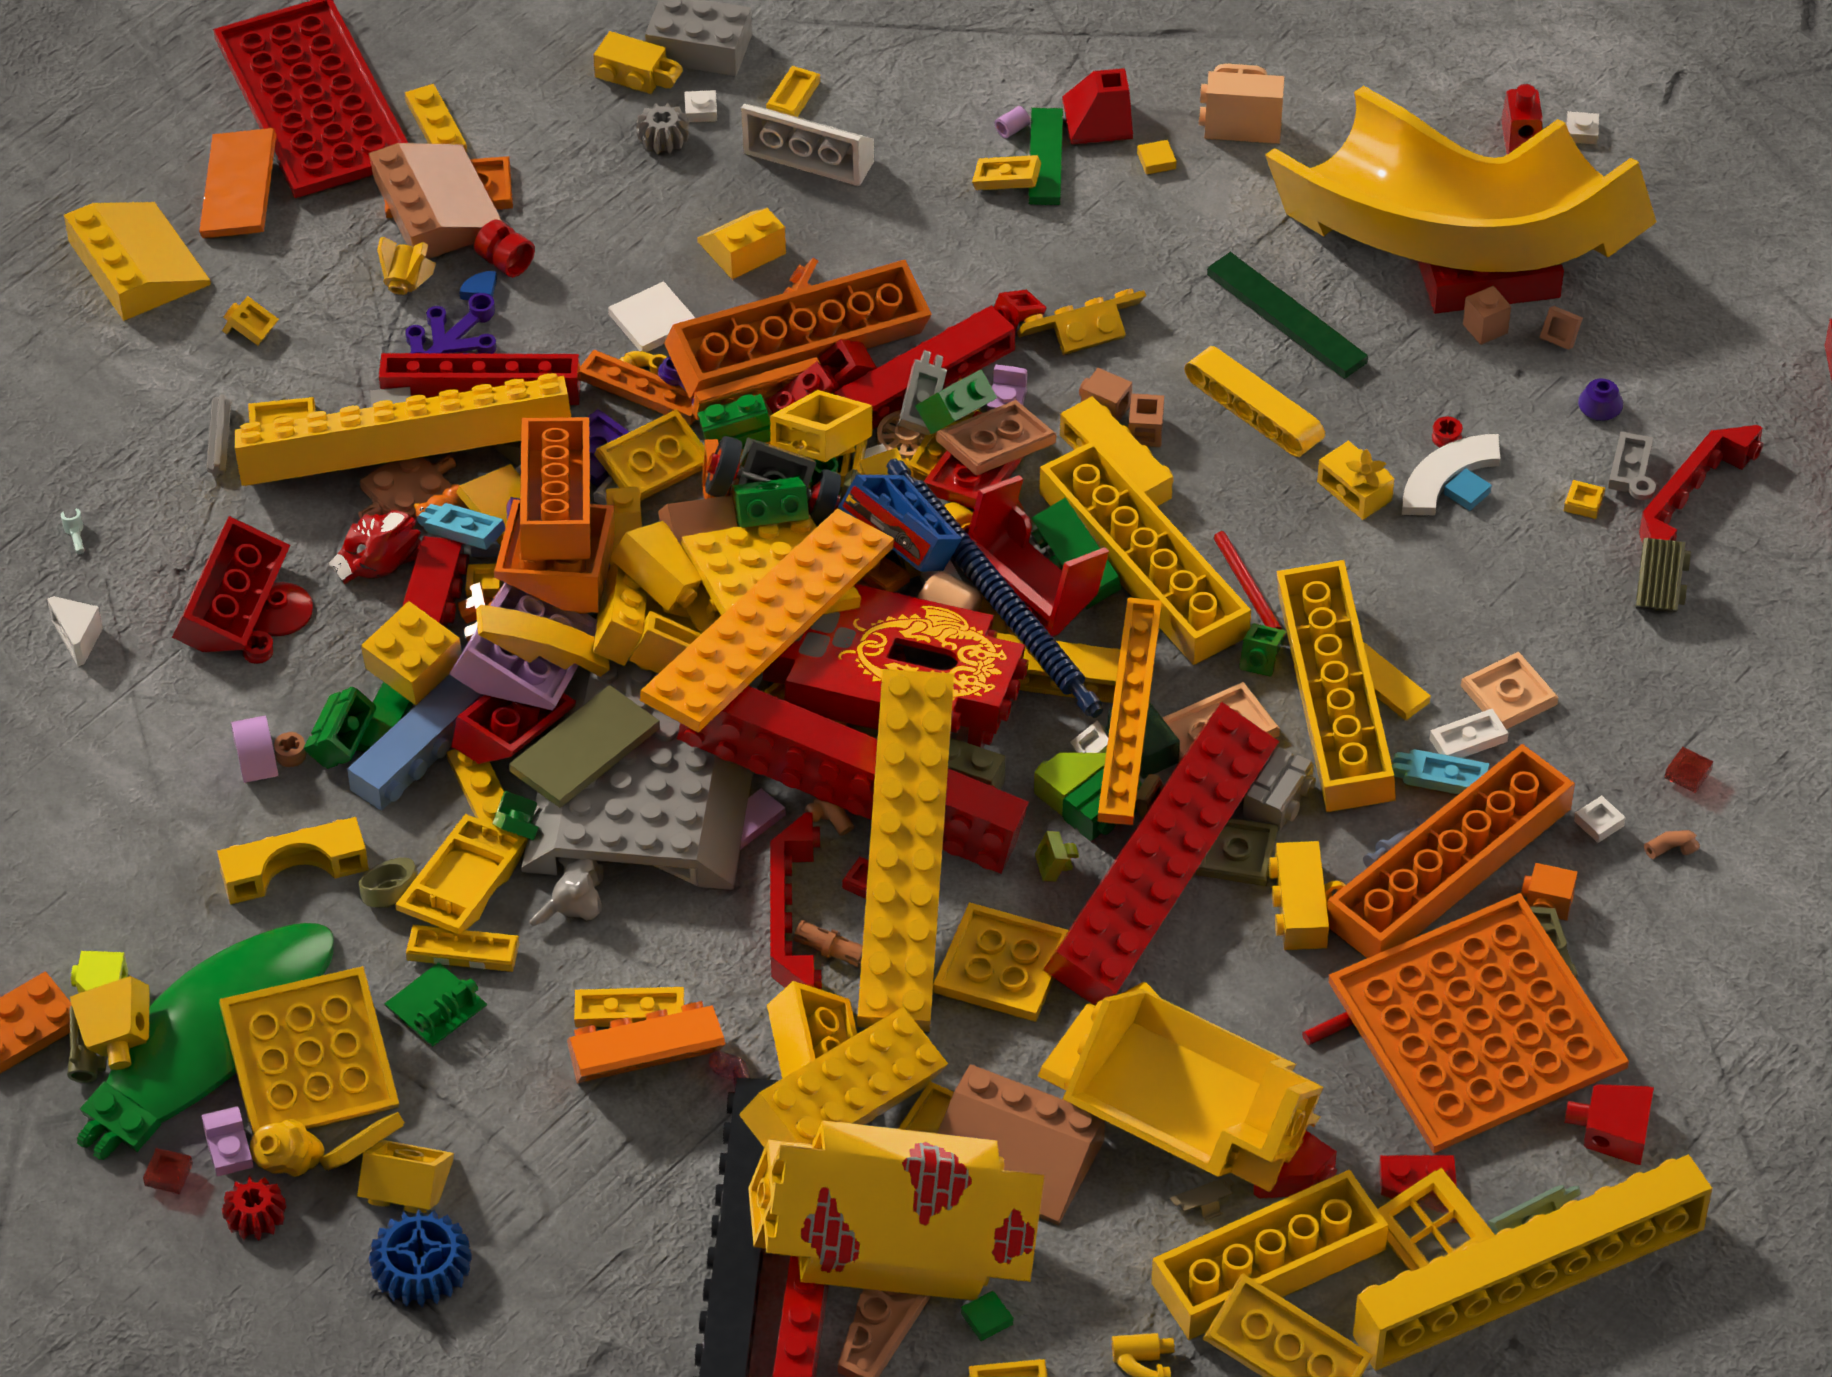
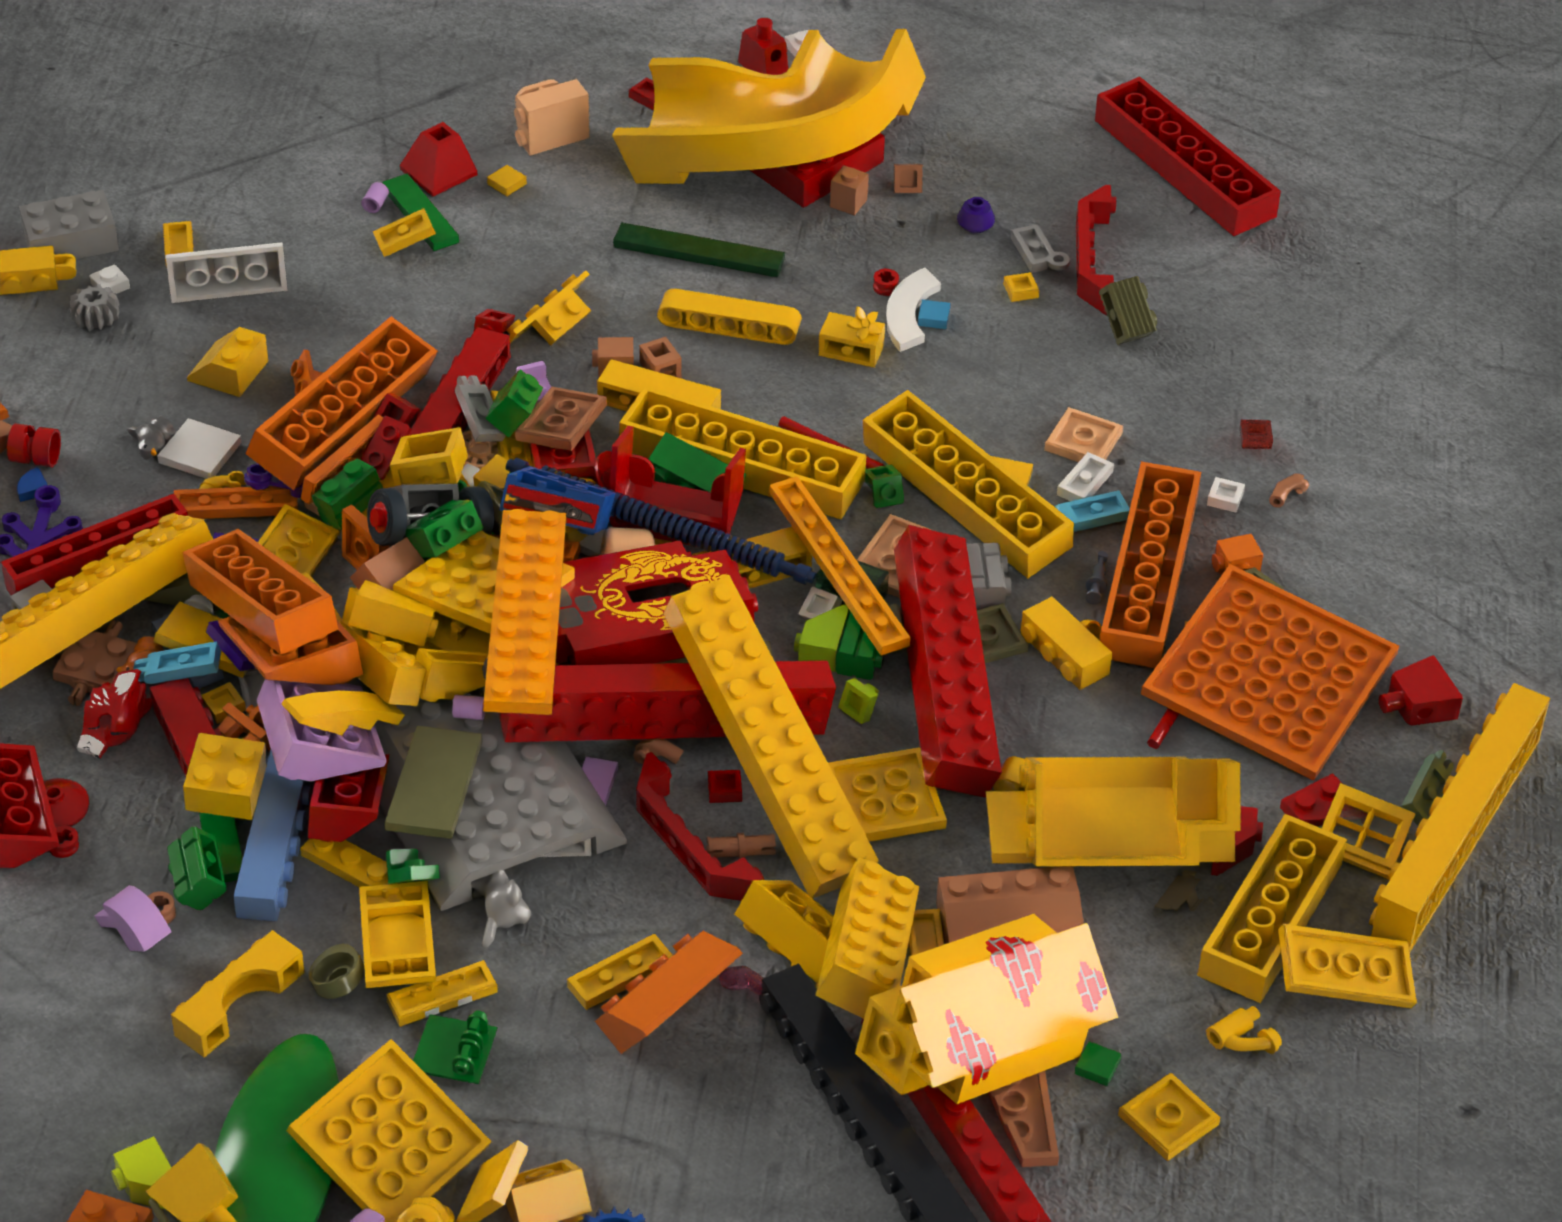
camera: 35 degrees left, 5 degrees down
(616, 287) = (152, 436): none -> flat silver animal

